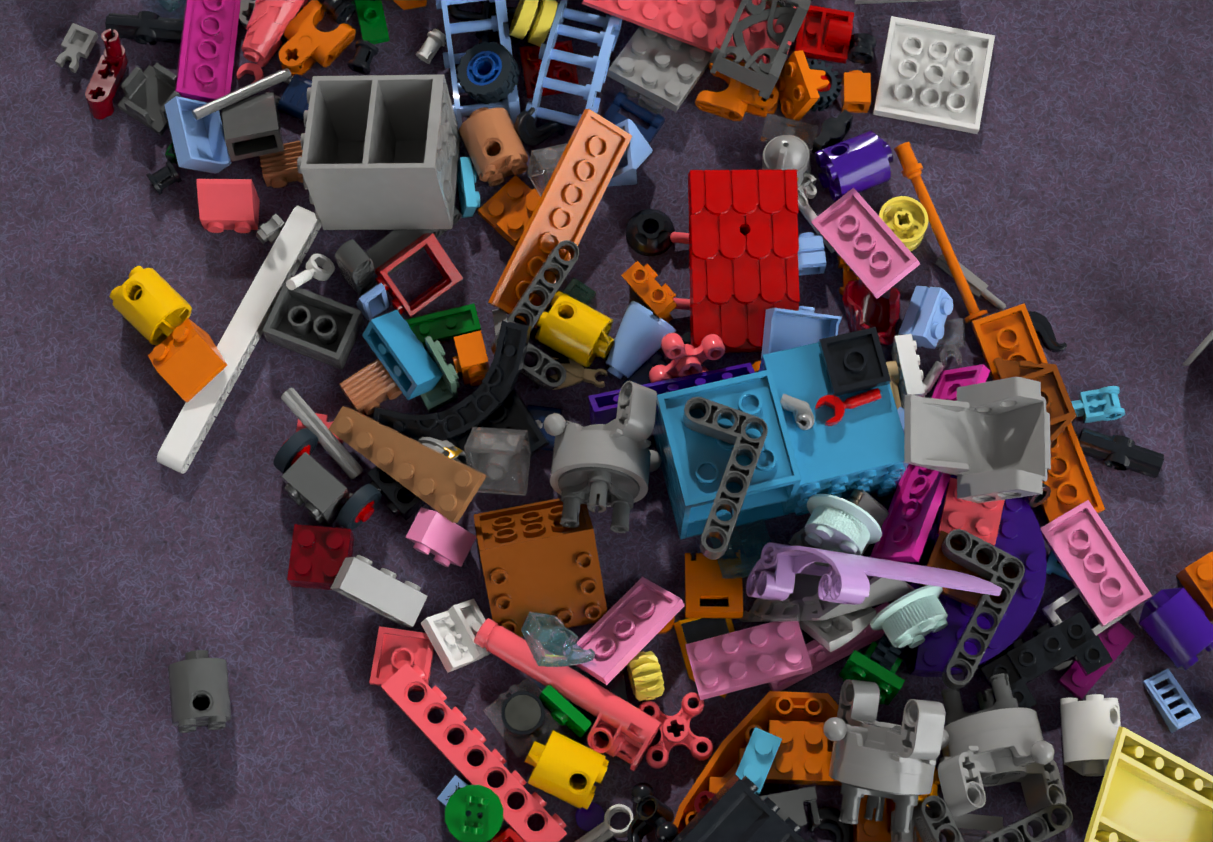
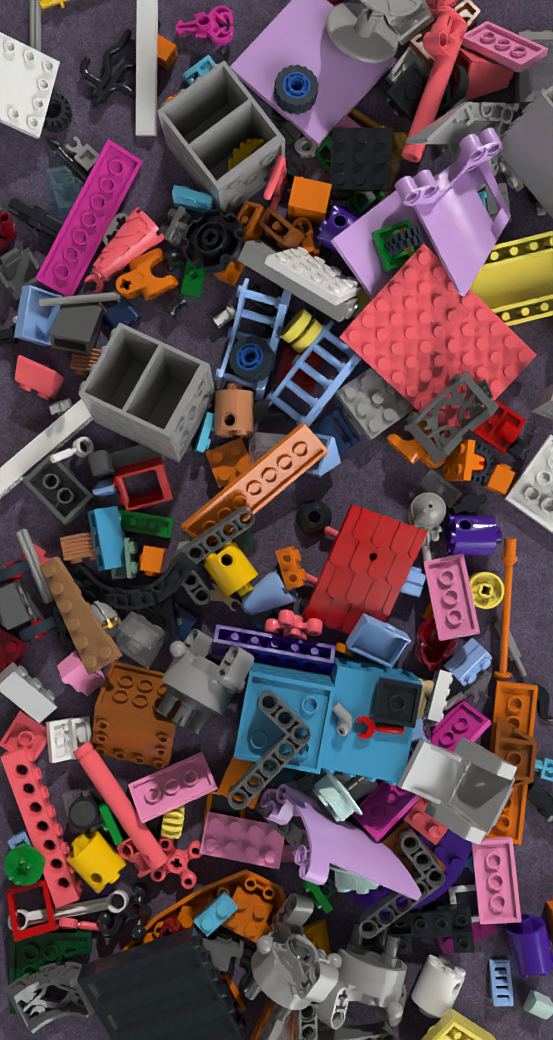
camera: 25 degrees right, 15 degrees up
(552, 642) = (121, 778): clear light blue slope -> none

